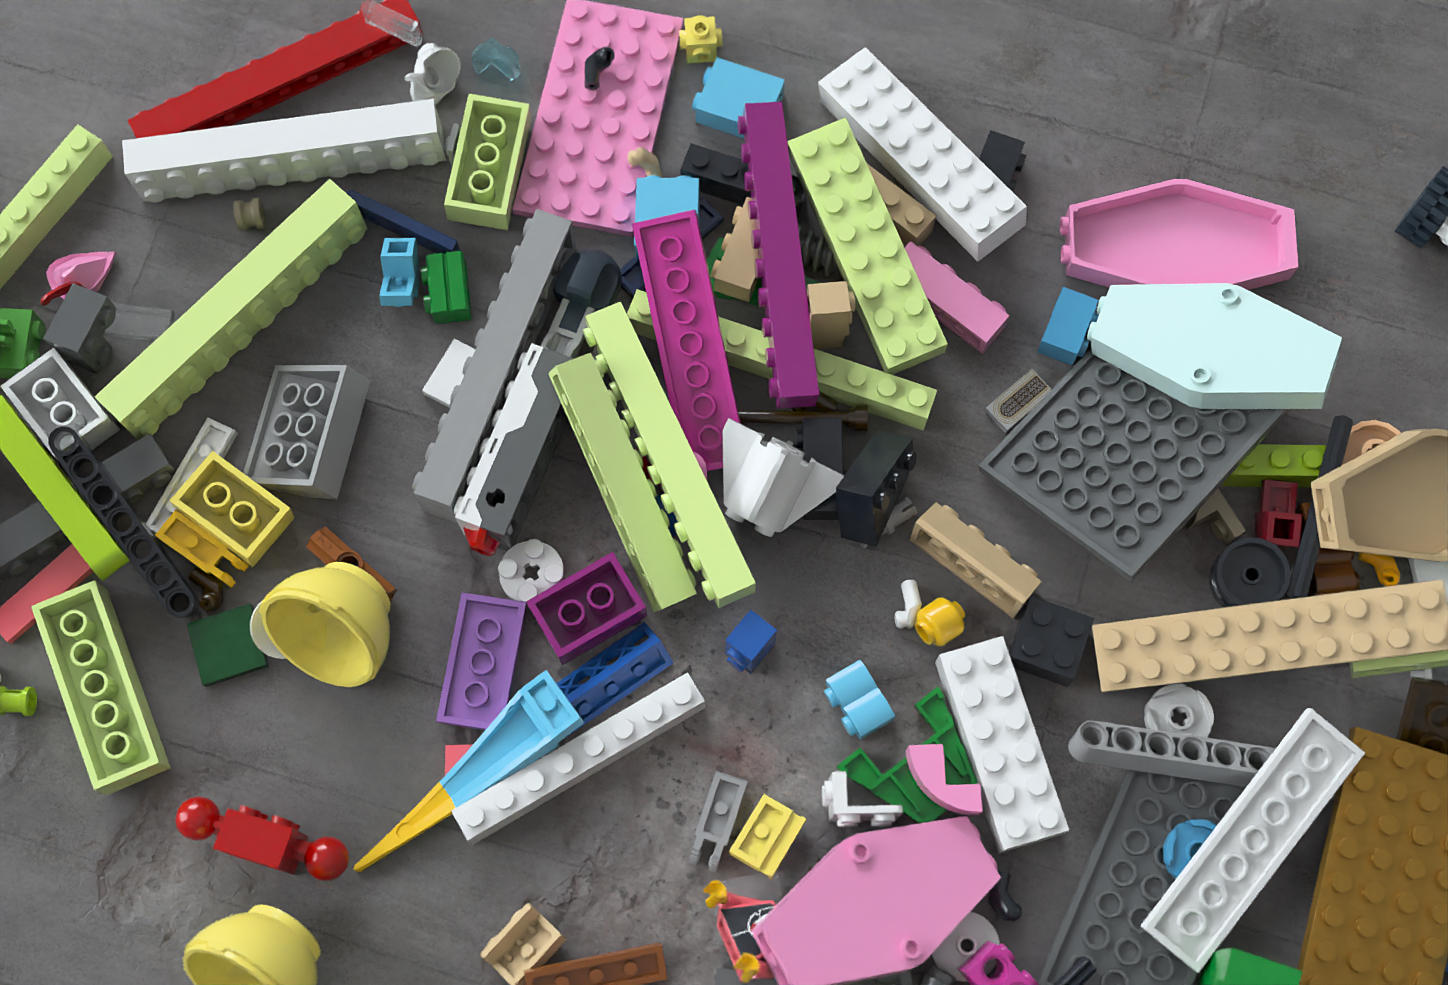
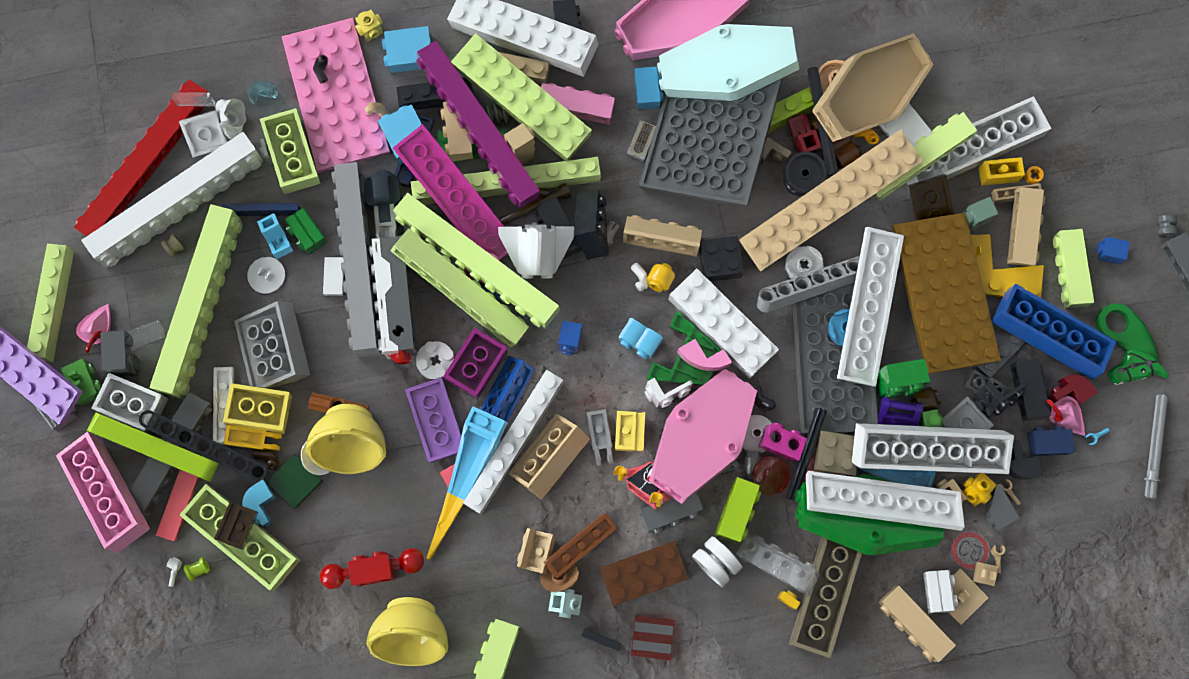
camera: 30 degrees left, 5 degrees up
(99, 665) = (236, 525): none -> dark brown plate
(156, 642) = (256, 498): none -> medium azure brick
(358, 323) = (266, 275): none -> white piece
(380, 76) = (203, 133): none -> white tile
(622, 809) = (549, 456): none -> tan slope

